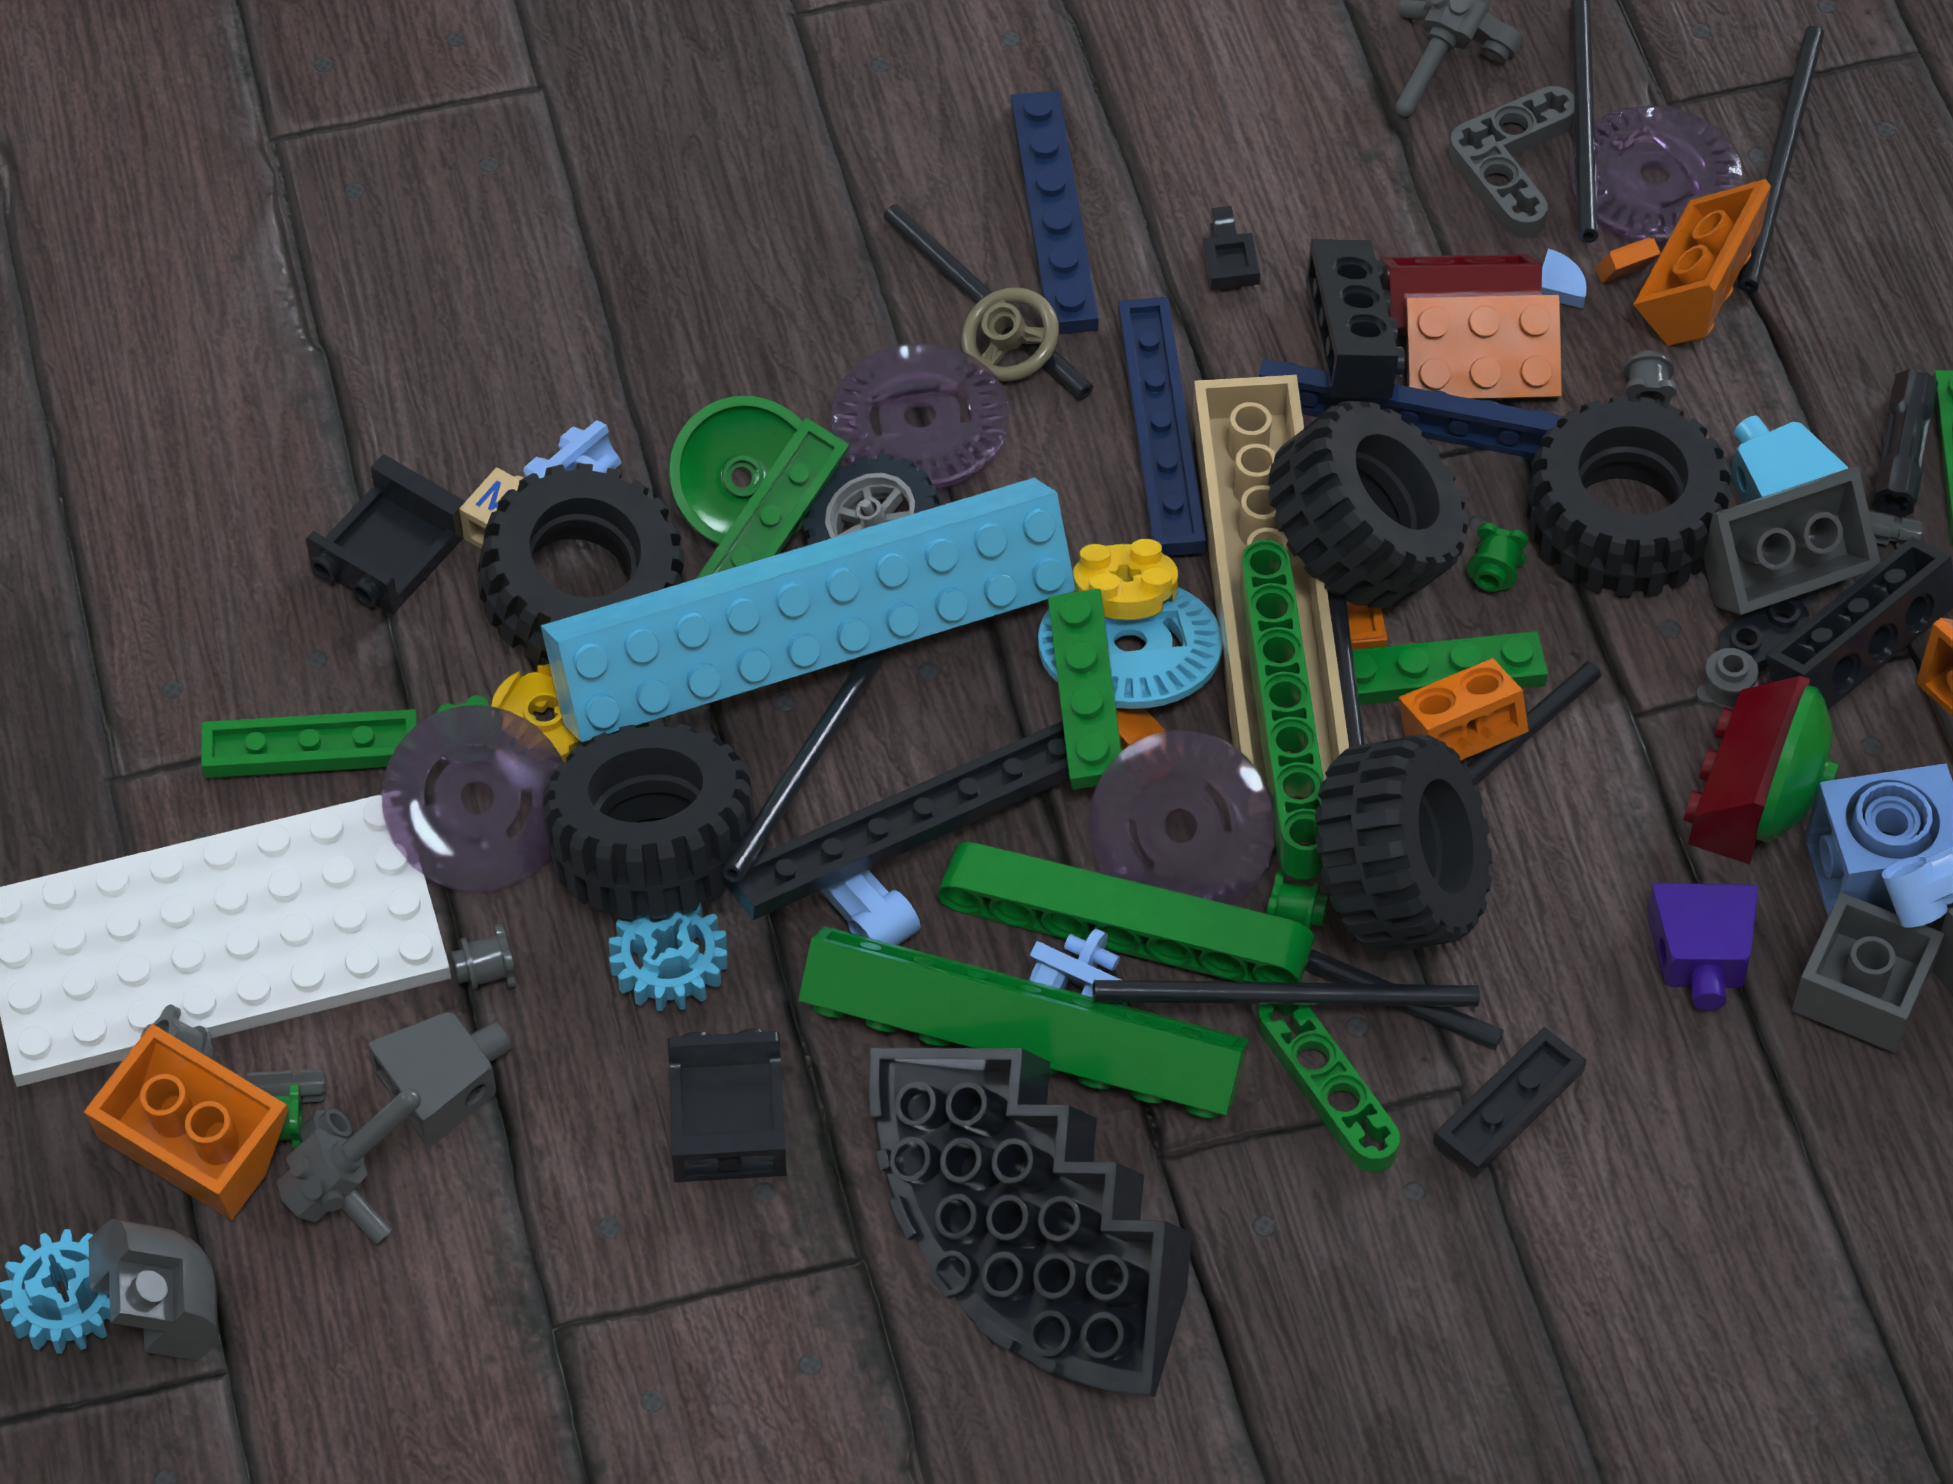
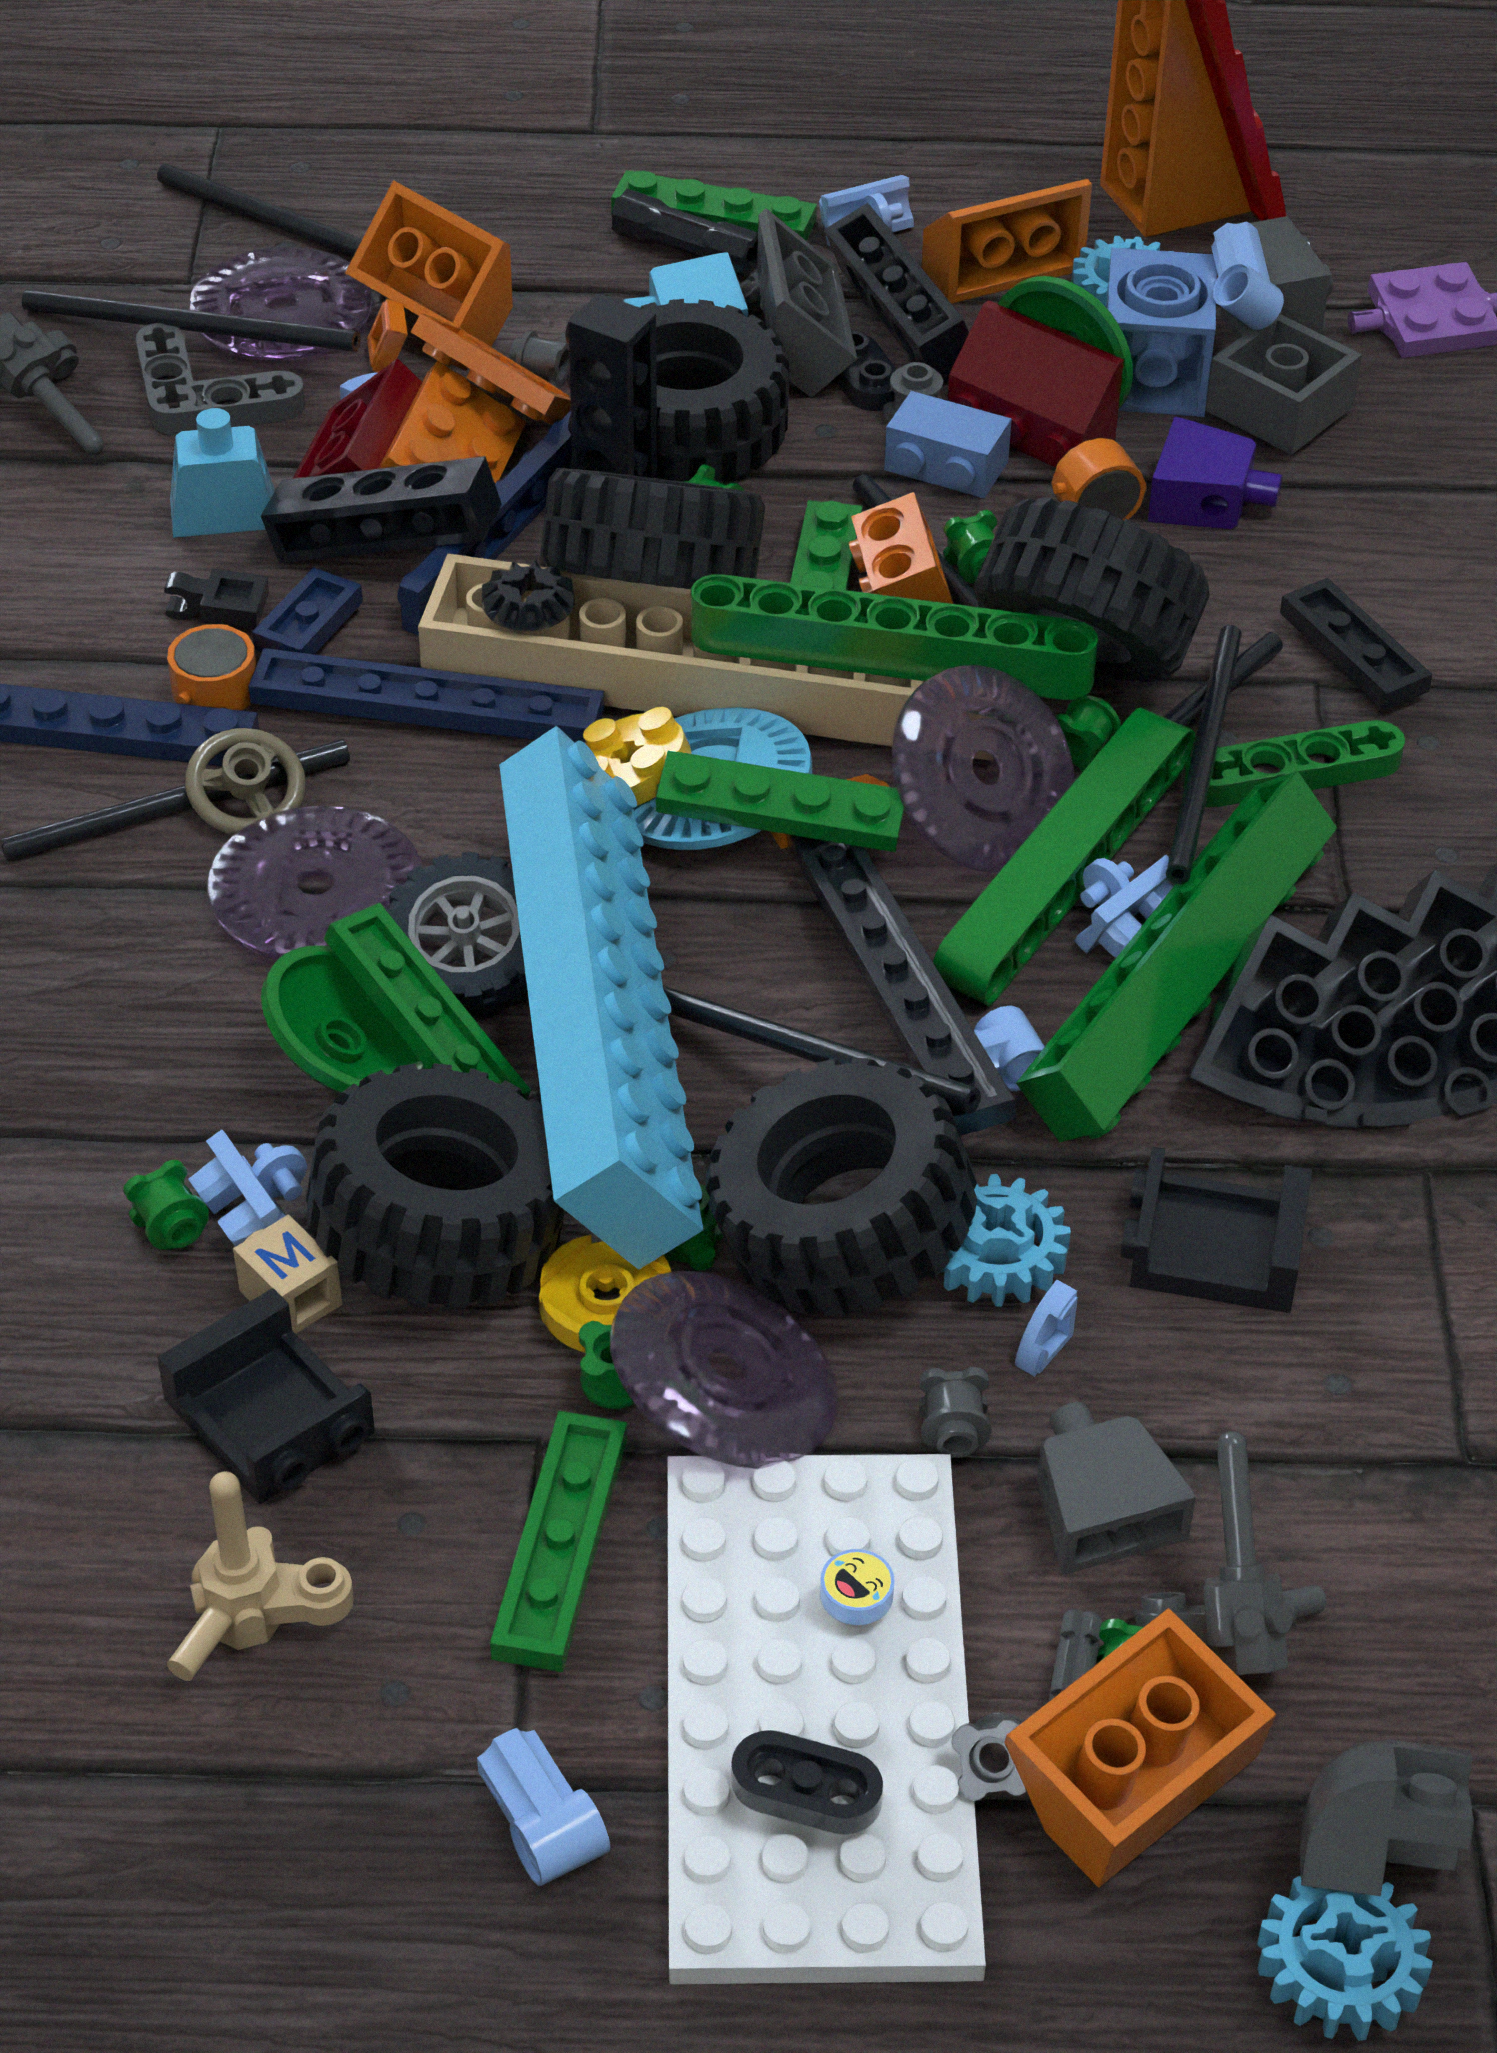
camera: 75 degrees left, 10 degrees down
(70, 799) = (547, 1820): none -> light blue piece
(112, 930) = (810, 1780): none -> black plate
(205, 566) = (249, 1592): none -> tan piece
(292, 924) = (857, 1587): none -> tile
(543, 423) = (166, 1207): none -> green brick
(590, 1008) = (1048, 1329): none -> light blue tile
(1134, 268) = (212, 667): none -> piece
(1229, 316) = (309, 614): none -> dark blue plate
(1233, 453) = (546, 607): none -> black gear
(1356, 189) = (218, 478): none -> medium azure torso
(1510, 429) = (613, 388): none -> black brick
(1517, 773) = (969, 542): none -> green brick
(1581, 338) = (492, 369): none -> orange plate
(1638, 846) = (1100, 477): none -> orange piece
(1661, 719) = (947, 444): none -> medium blue brick

